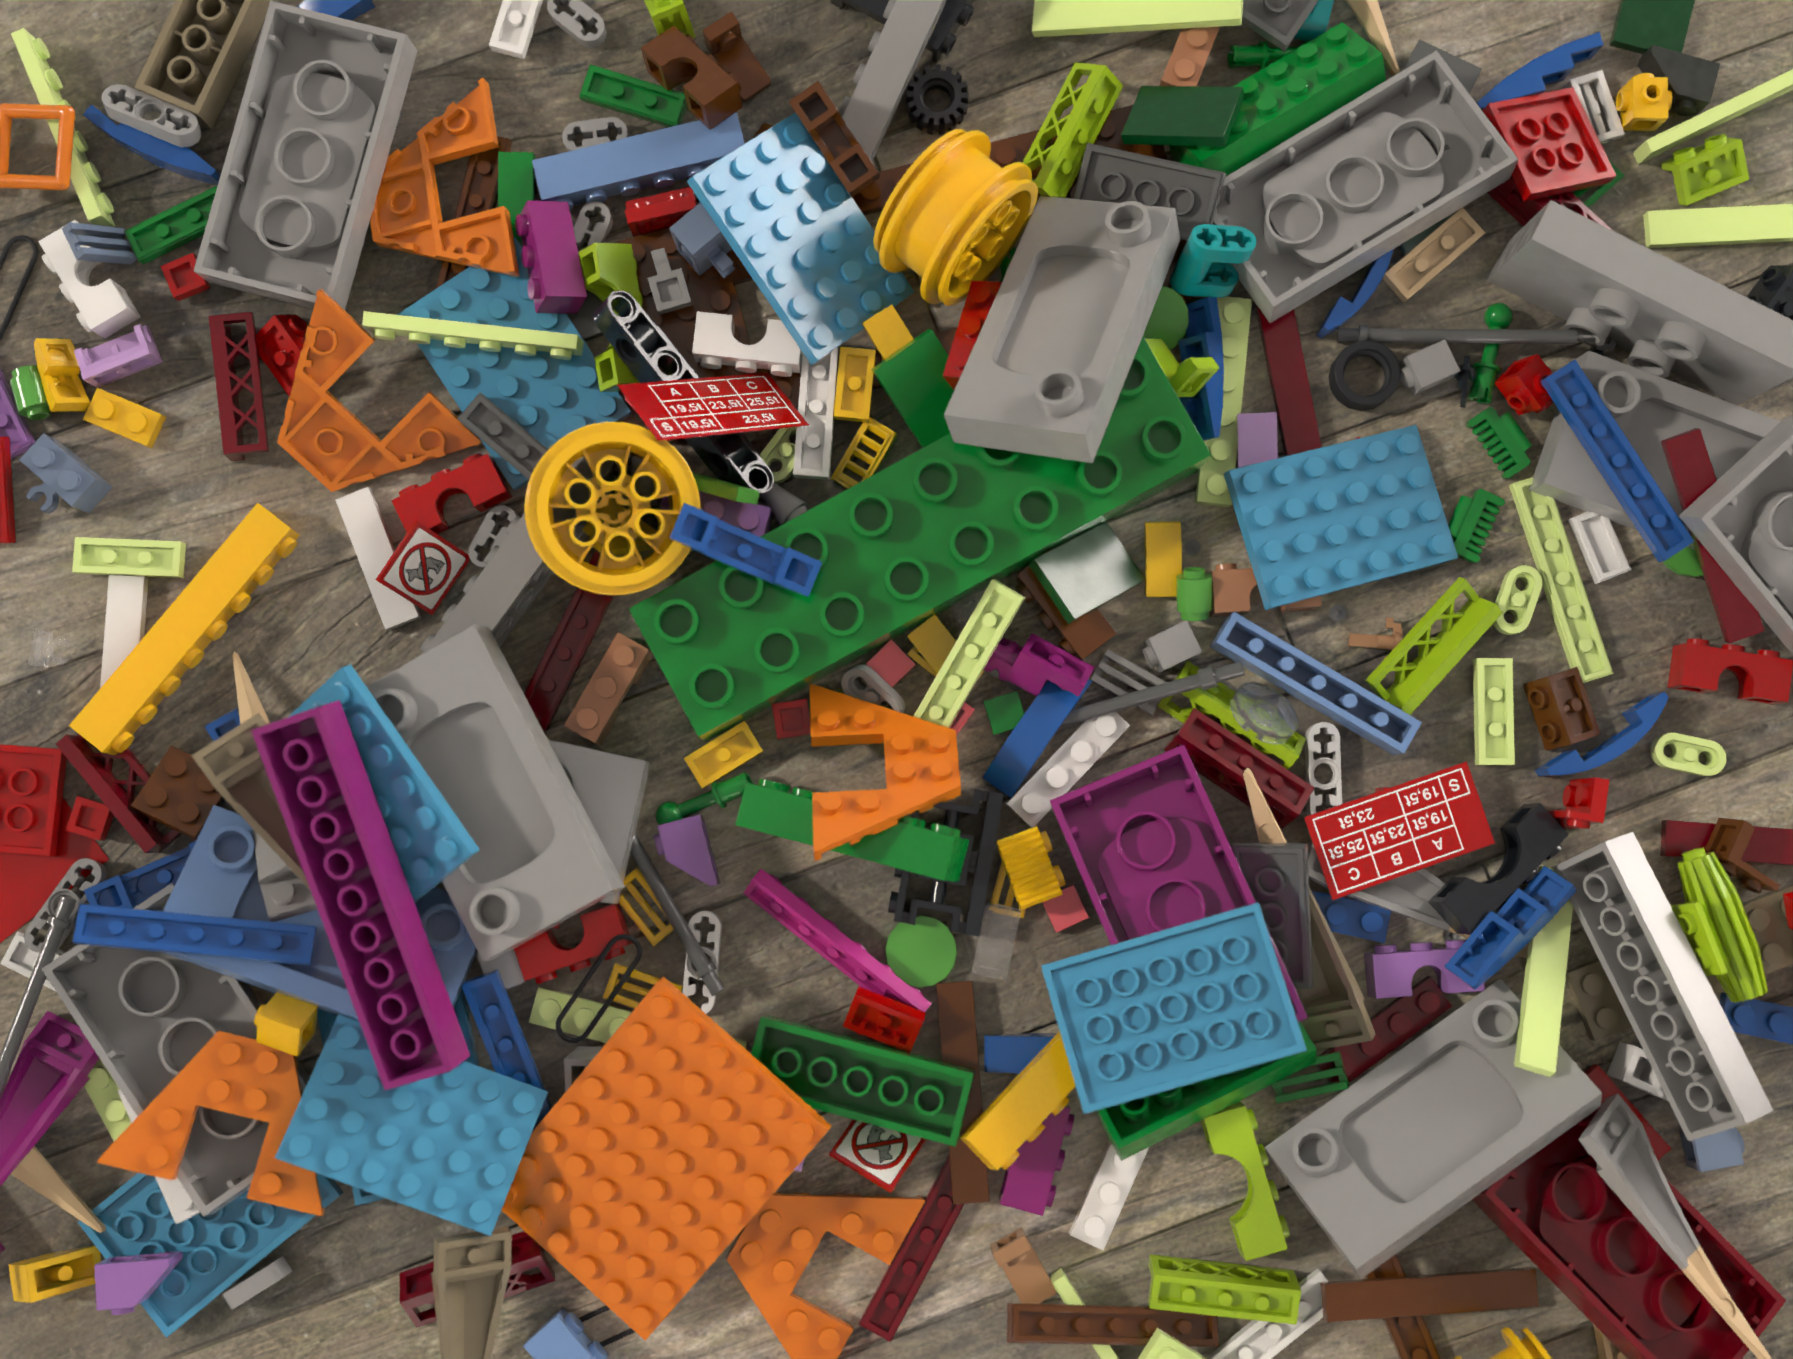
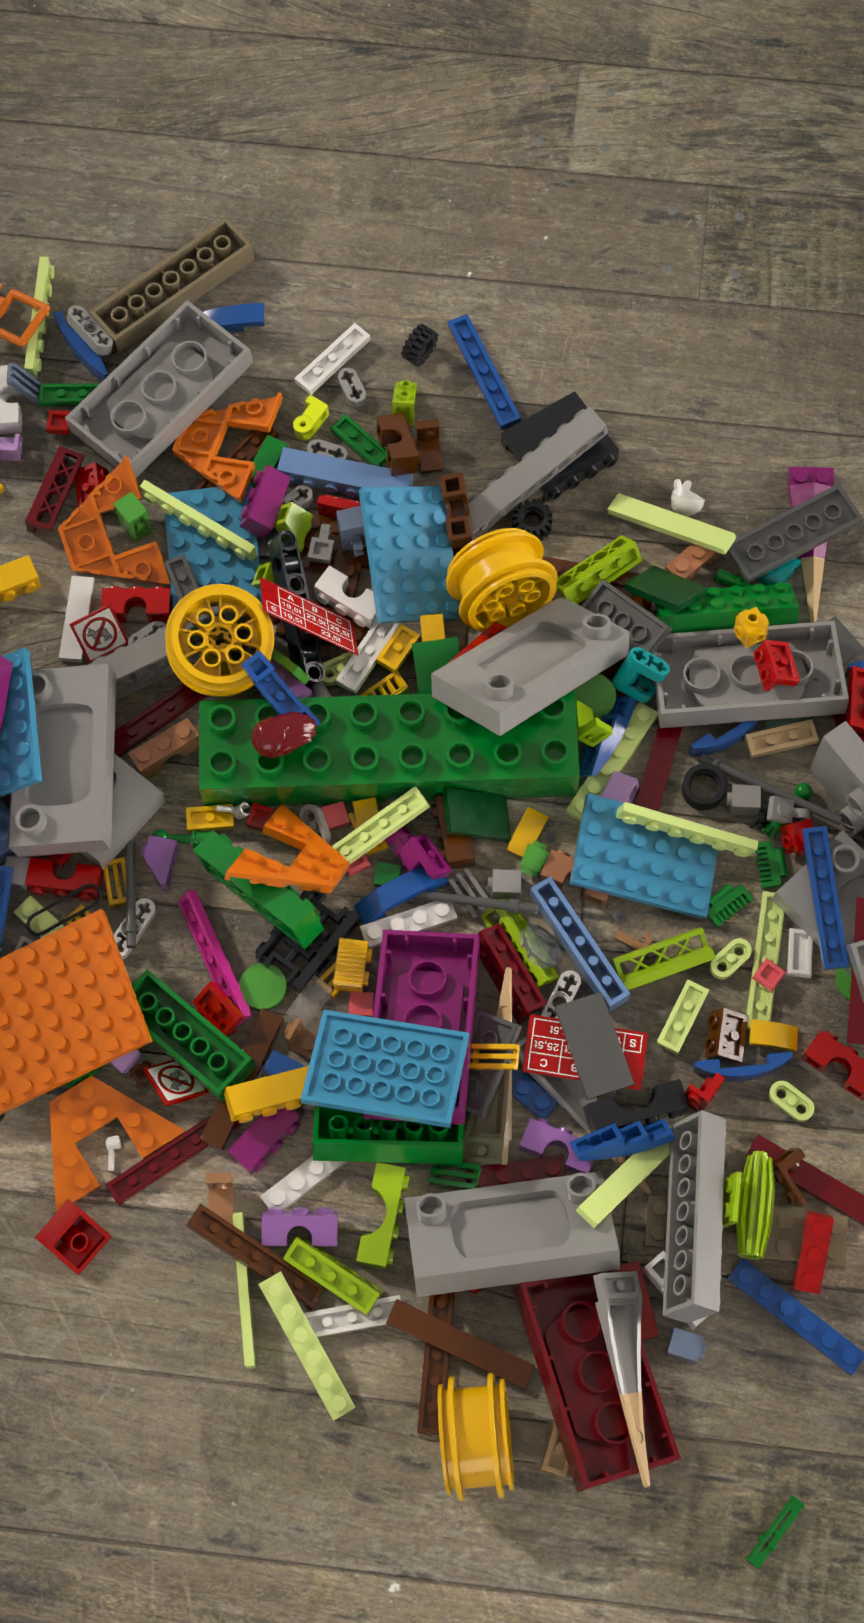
camera: 30 degrees right, 15 degrees down
(375, 372) = (133, 517): none -> bright green panel
(547, 94) = (312, 418): none -> neon yellow leg
(755, 728) = (236, 811): none -> white hand
(780, 606) = (282, 734): none -> dark red hair
(818, 1155) = (137, 1072): none -> reddish brown plate
(838, 1265) = (112, 1143): none -> white hand
(1018, 1000) = (299, 1039): none -> medium nougat bracket
(1167, 1234) = (320, 1223): none -> medium lavender arch
(1310, 914) = (476, 1055): none -> yellow tile
(1335, 117) = (751, 627): none -> yellow brick
(1372, 457) = (684, 828): none -> yellowish green plate
(1396, 158) = (775, 664): none -> red bracket
(1410, 818) = (594, 1046): none -> dark grey tile
(1494, 361) = (783, 811): none -> light grey plate
(1579, 598) = (769, 975): none -> coral tile
(1621, 677) = (773, 1035): none -> yellow slope

